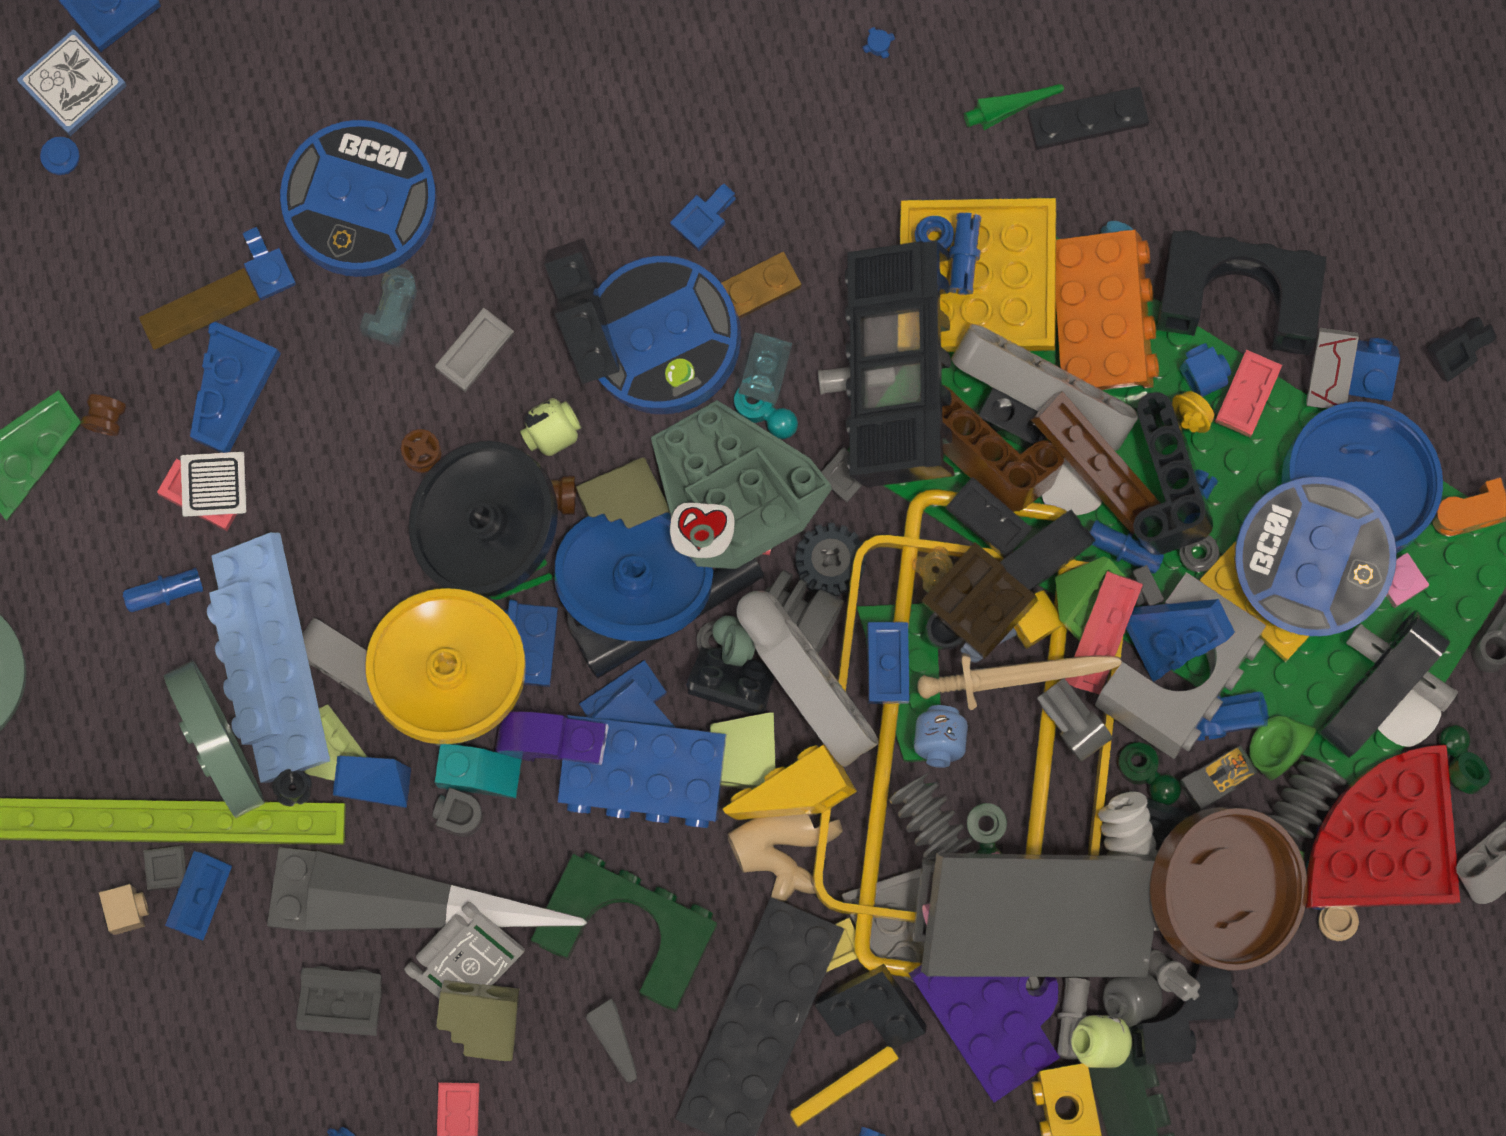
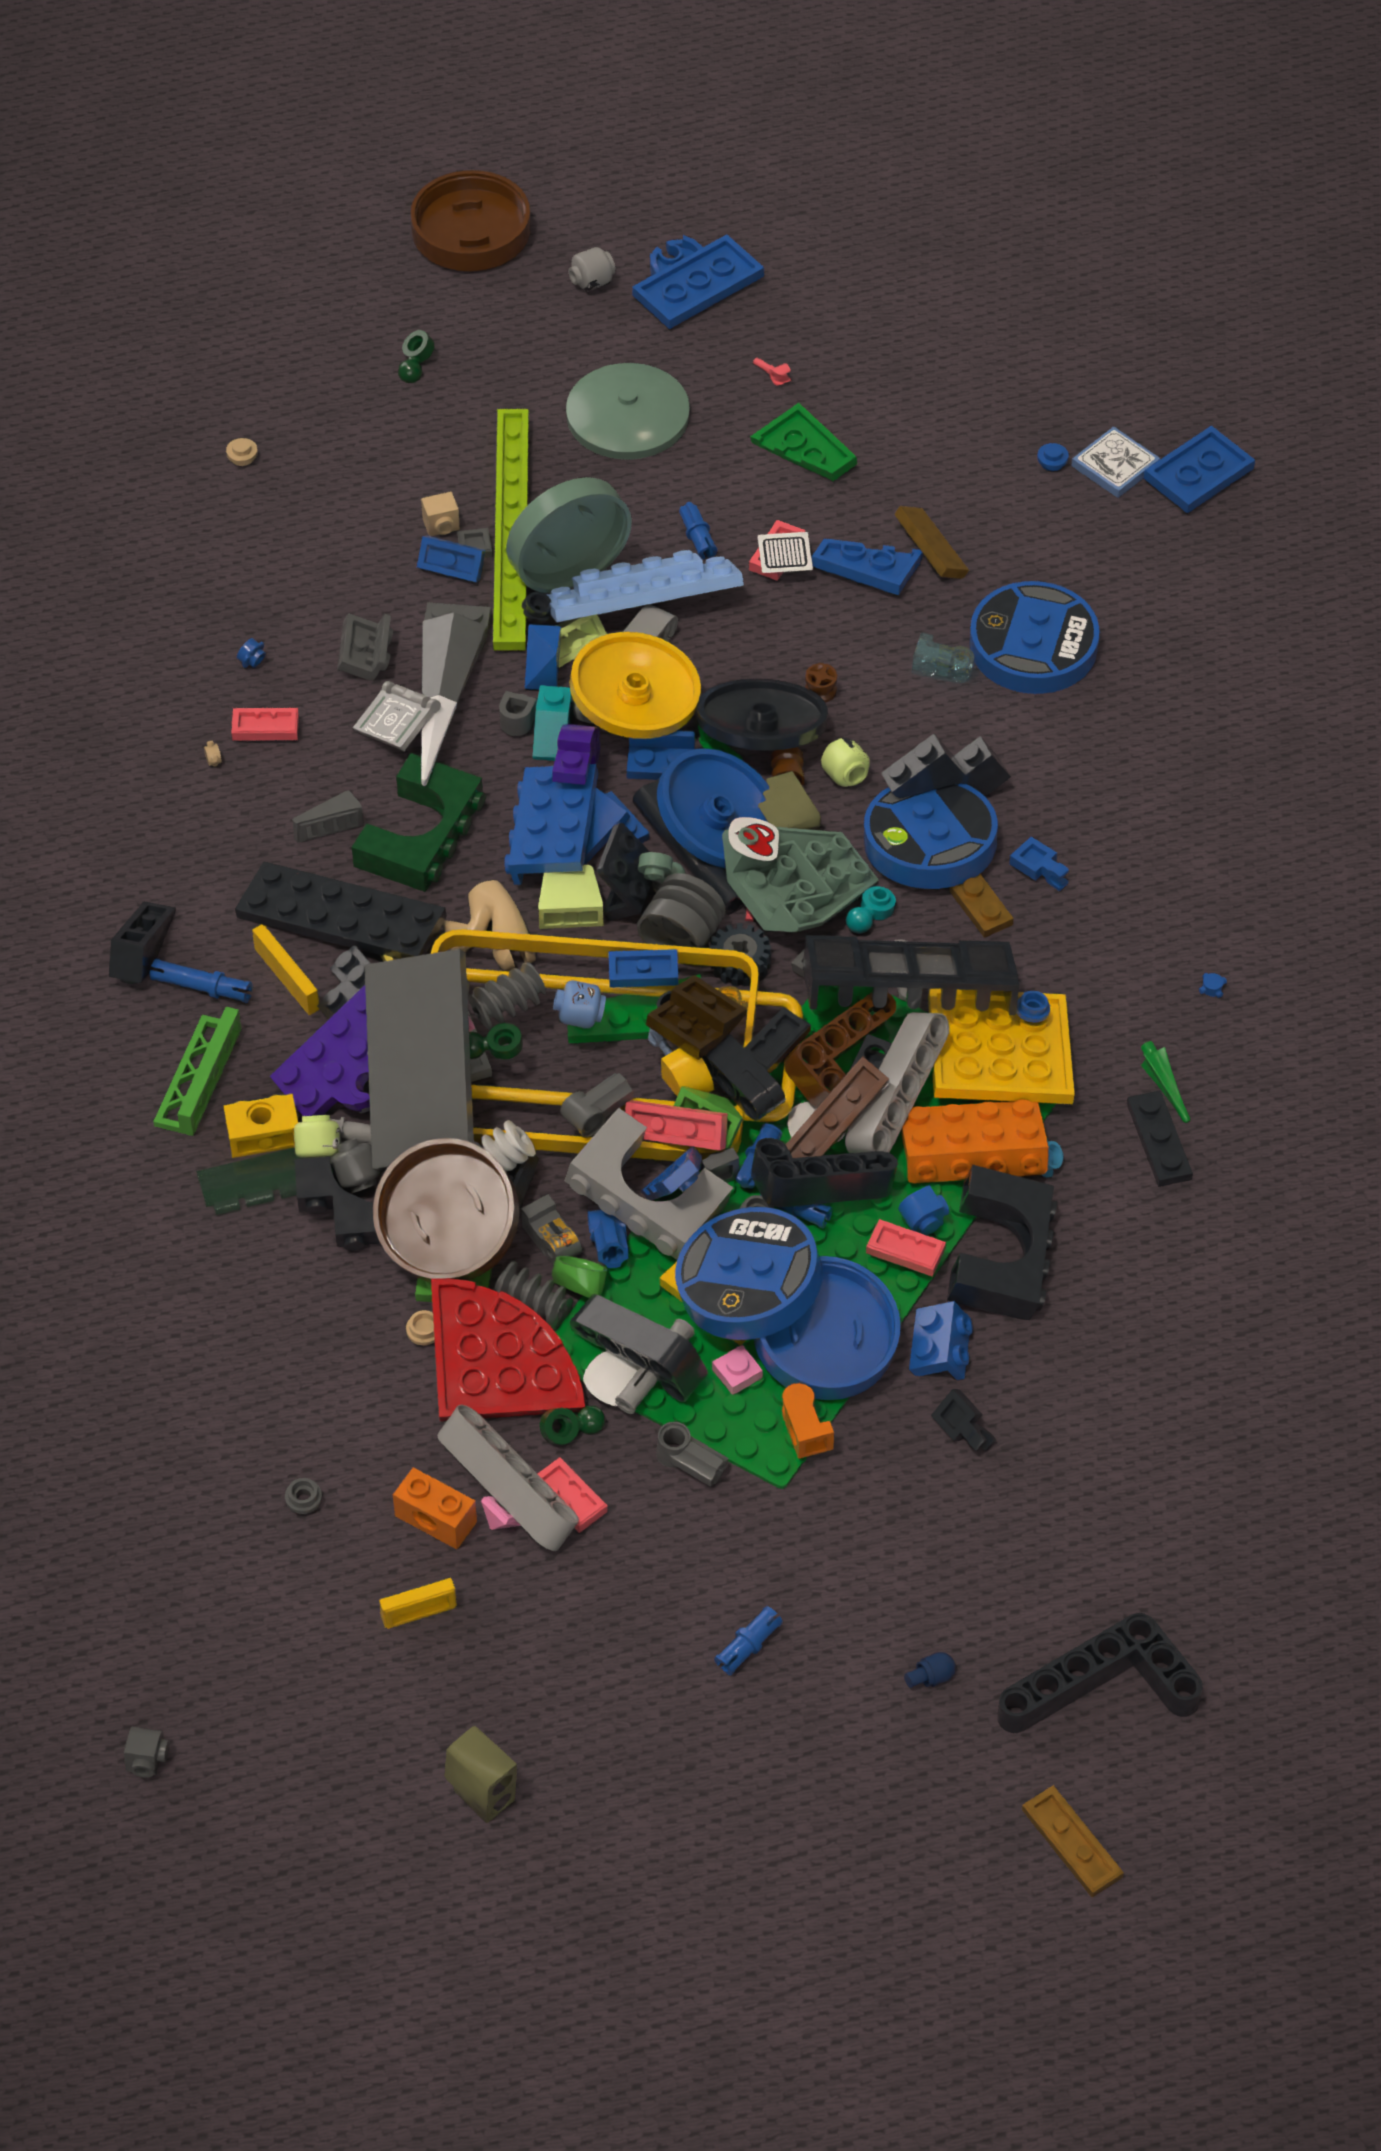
camera: 90 degrees right, 25 degrees down
(103, 415) = (838, 487): reddish brown wheel -> none
(267, 269) = (970, 587): blue plate -> none
(474, 350) = (910, 717): light grey tile -> none
(480, 1018) = (347, 726): olive piece -> none
(765, 368) = (905, 899): clear light blue plate -> none
(804, 787) = (537, 914): yellow slope -> none
(805, 677) = (624, 903): light grey piece -> none
(964, 253) = (1015, 1024): blue pin -> none
(1013, 675) = (633, 1049): tan sword -> none
(1162, 787) = (555, 1185): dark green plate -> none
(1172, 976) = (364, 1186): light grey axle -> none
(1193, 411) = (883, 1201): yellow hat -> none
(1332, 368) = (932, 1304): light grey tile -> none

